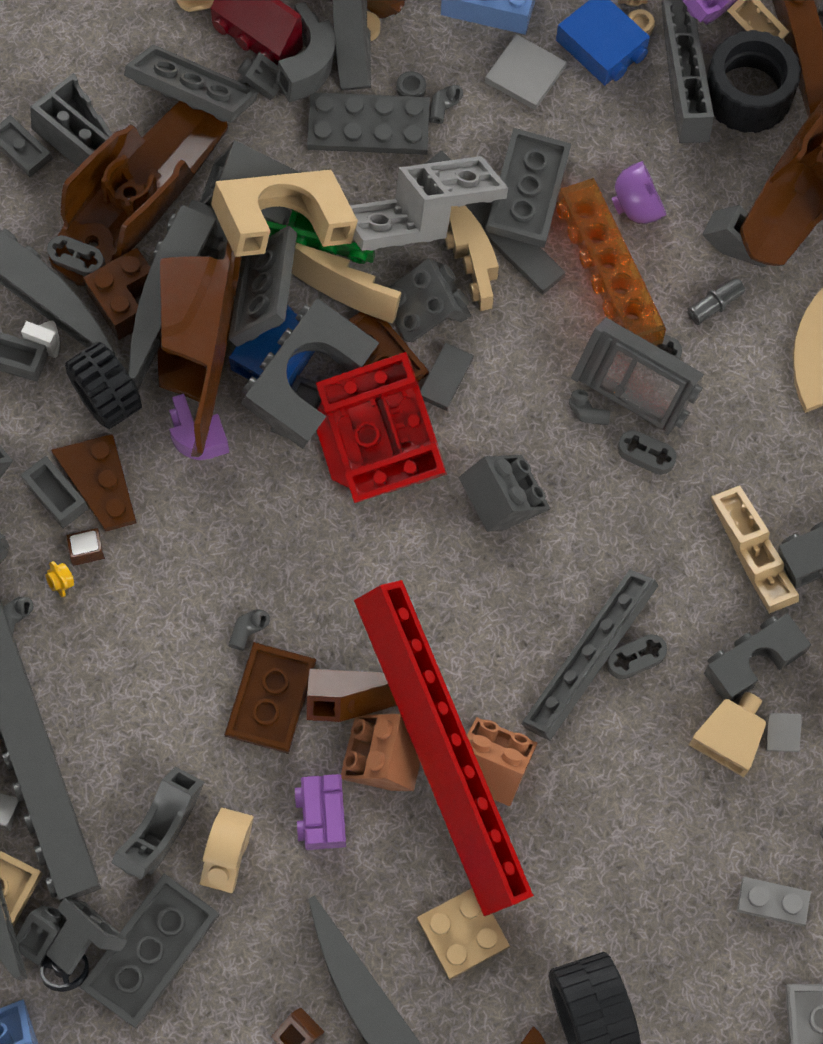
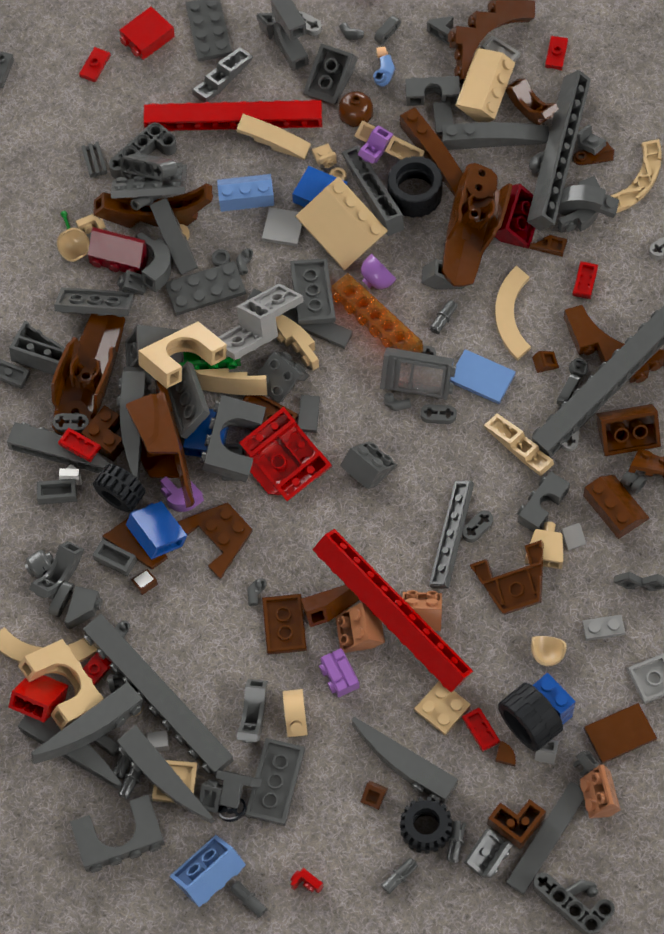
camera: 15 degrees left, 5 degrees down
(59, 578) = (138, 603): yellow plate -> none
(71, 295) = (79, 444): none -> red plate
(133, 472) = (156, 529): none -> blue brick
(241, 511) = (224, 529): none -> reddish brown wing
(509, 994) = (481, 729): none -> red plate
(614, 97) = (341, 223): none -> tan slope
(646, 995) = (557, 696): none -> blue brick
(660, 783) = (516, 588): none -> reddish brown wing
(668, 905) = (548, 650): none -> tan helmet
(739, 418) = (482, 376): none -> medium blue tile

